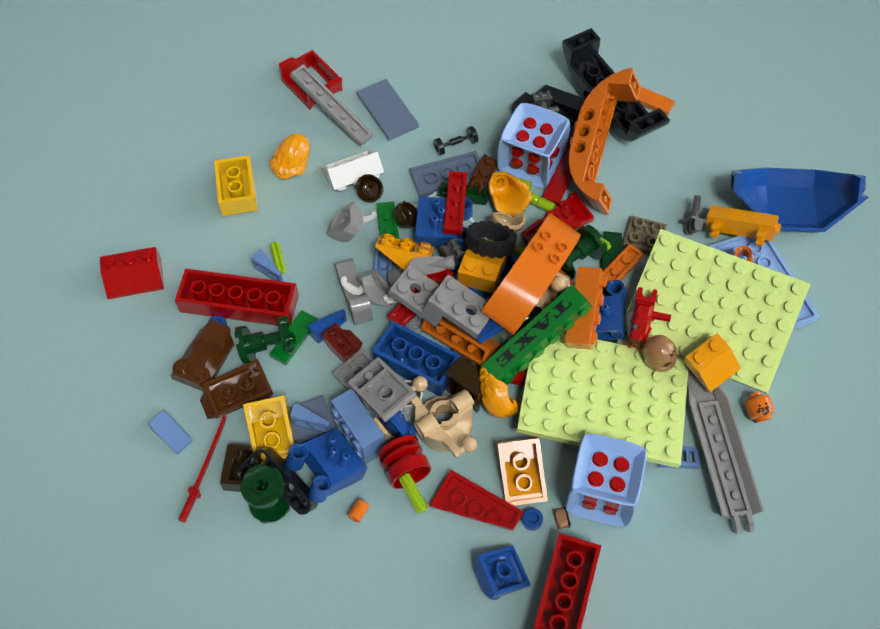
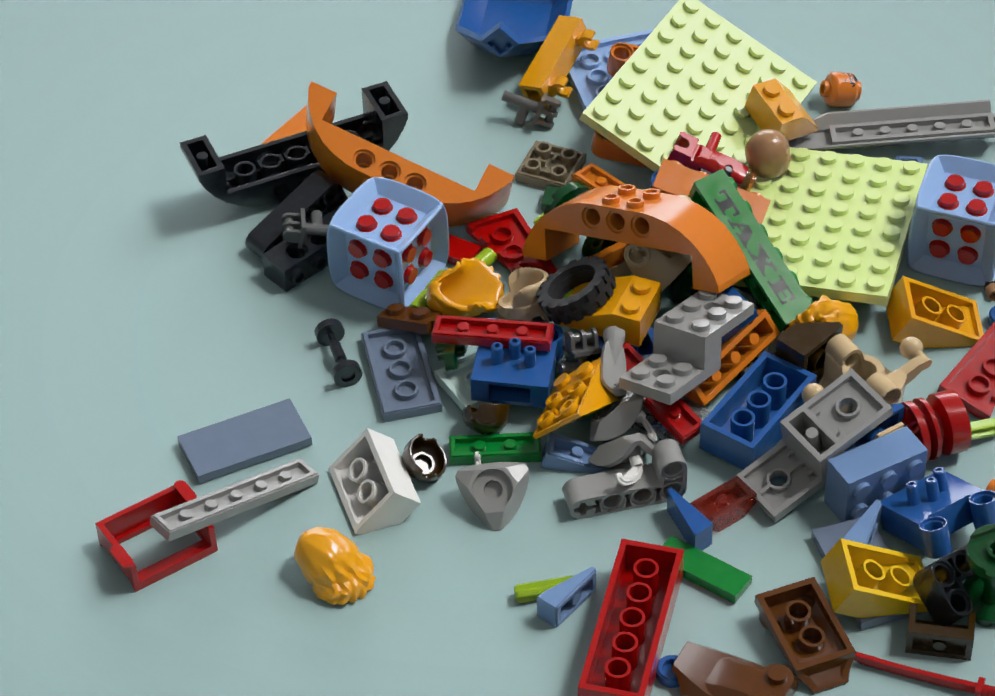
camera: 85 degrees left, 15 degrees down
(235, 185) = (392, 635): yellow brick -> none
(250, 343) = (727, 603): dark green piece -> none

